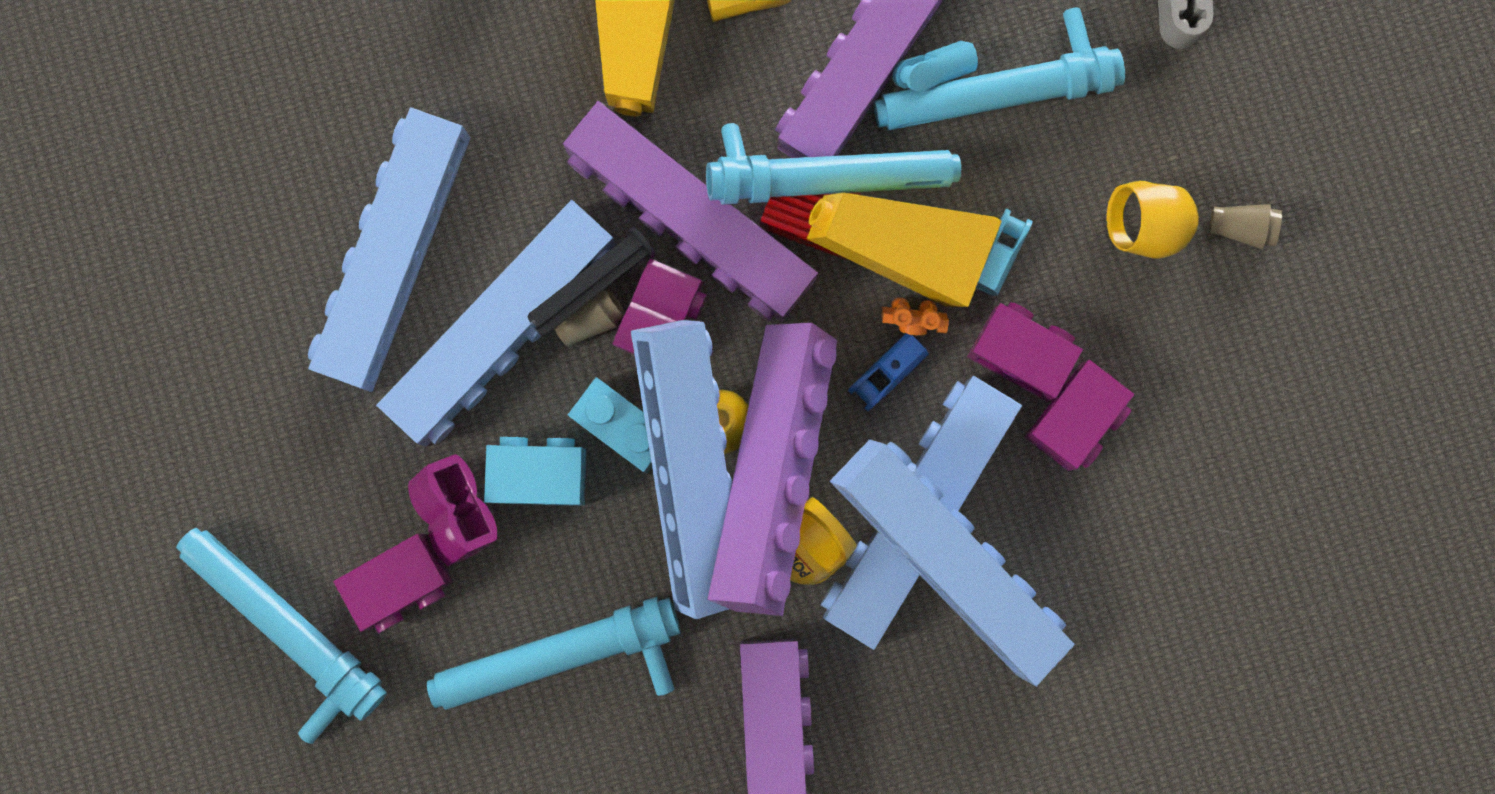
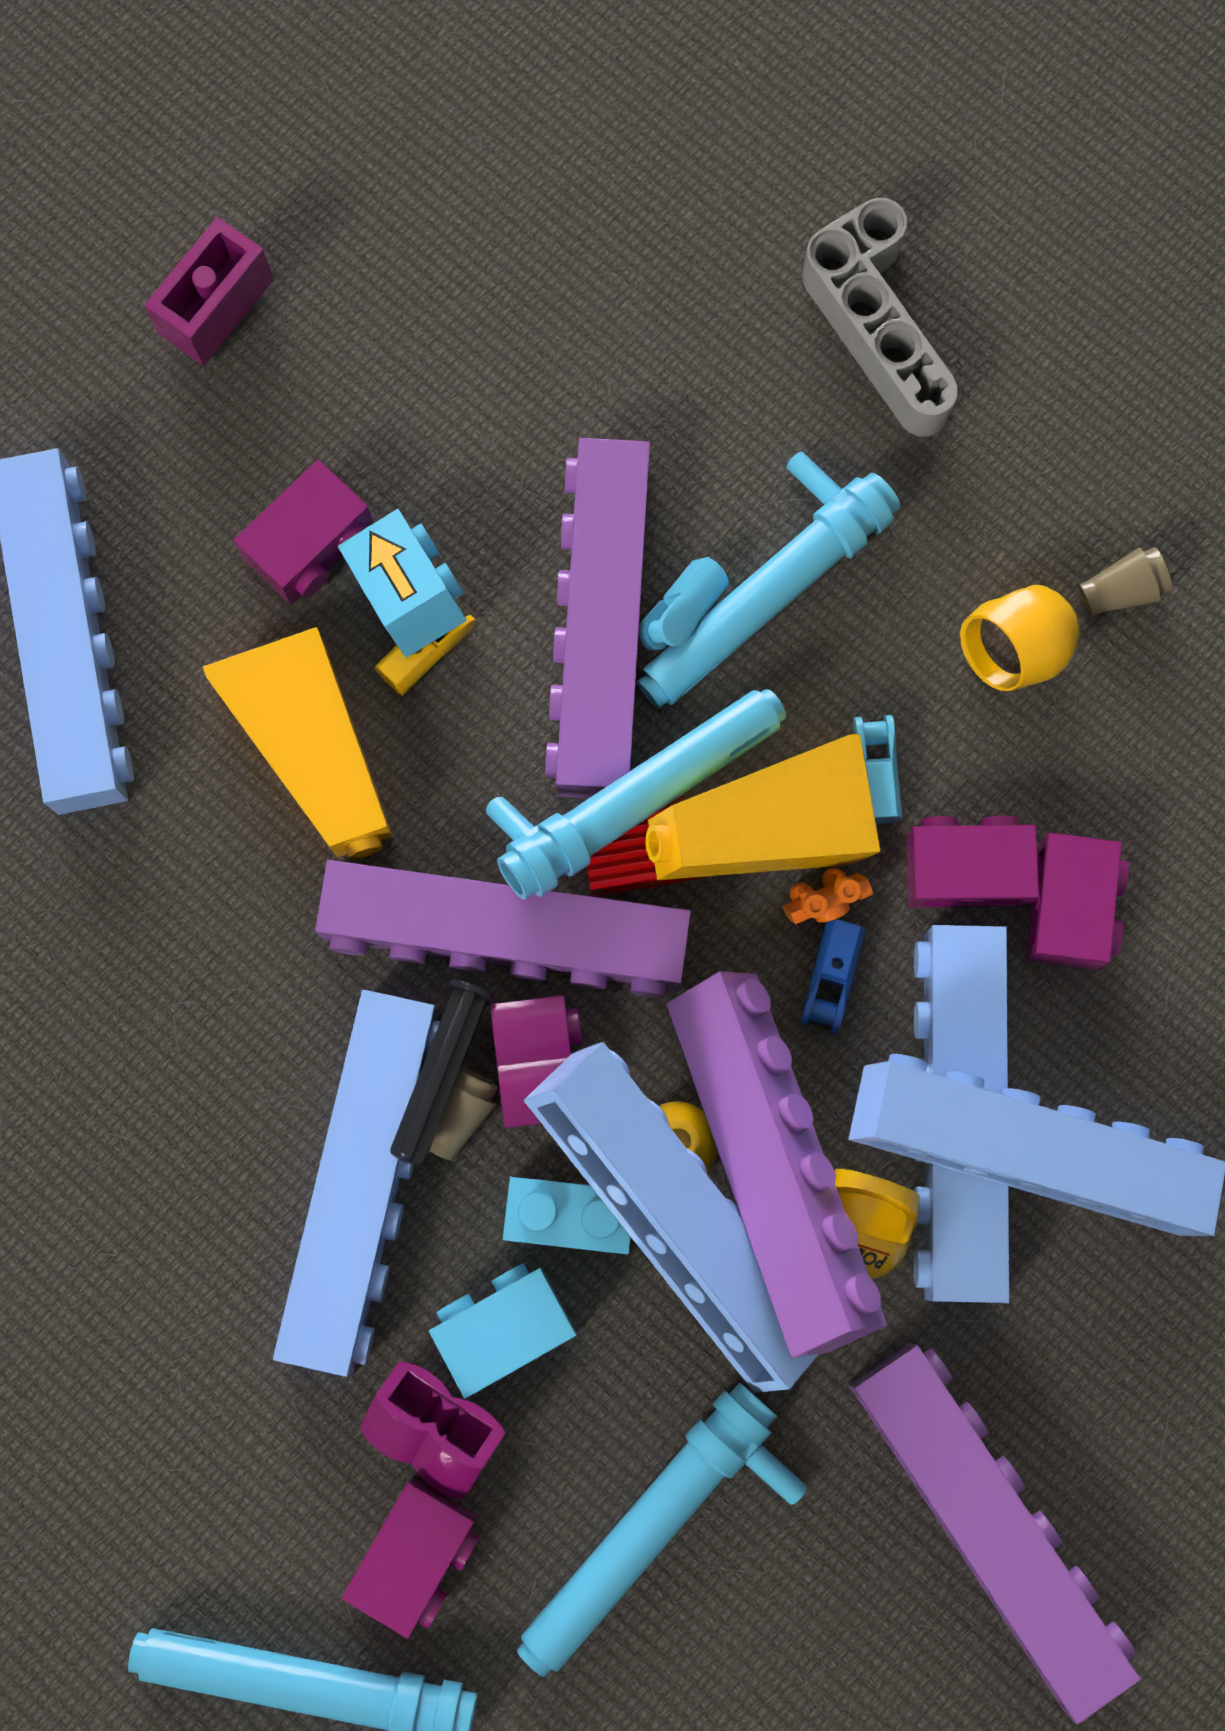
camera: 30 degrees left, 5 degrees down
(389, 249) = (181, 1171): light blue brick -> none

